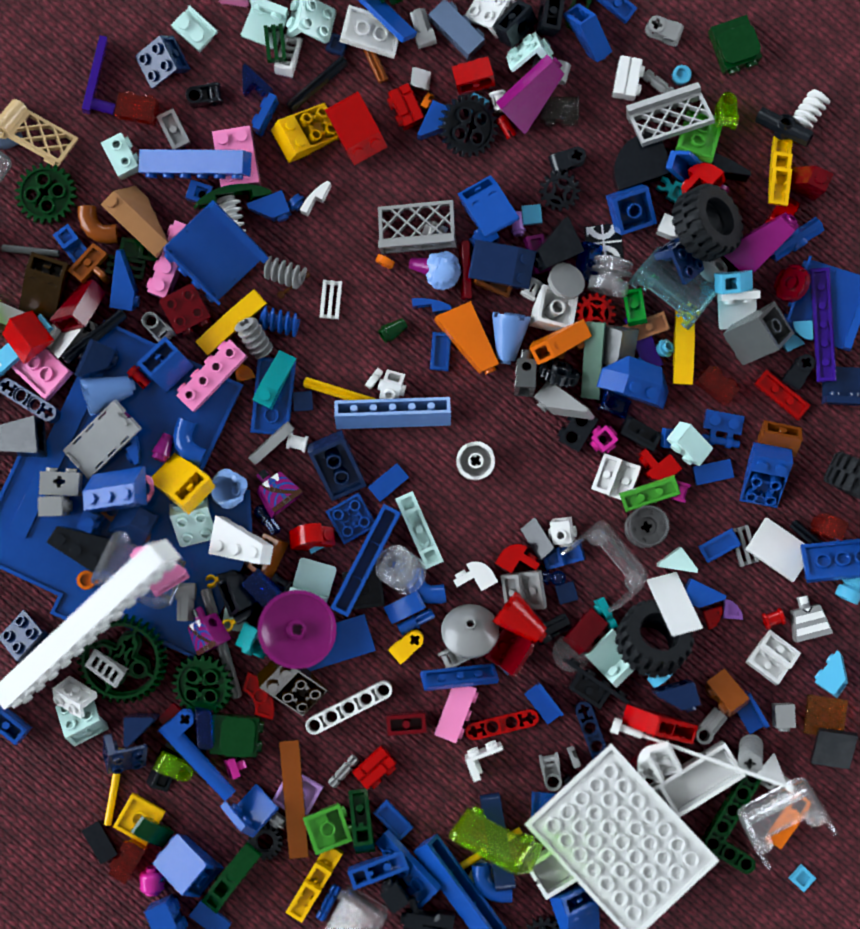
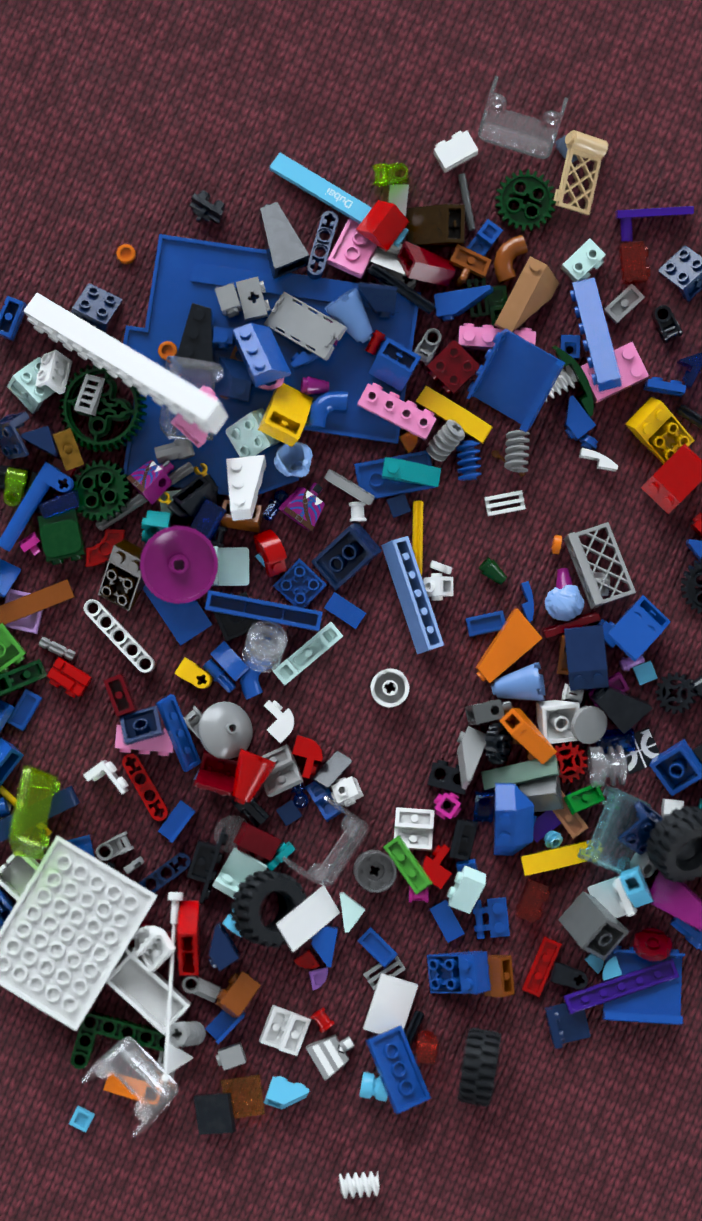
camera: 70 degrees right, 0 degrees up
(153, 704) = (68, 449): none -> pearl gold plate
(442, 711) = (141, 725): none -> dark blue slope

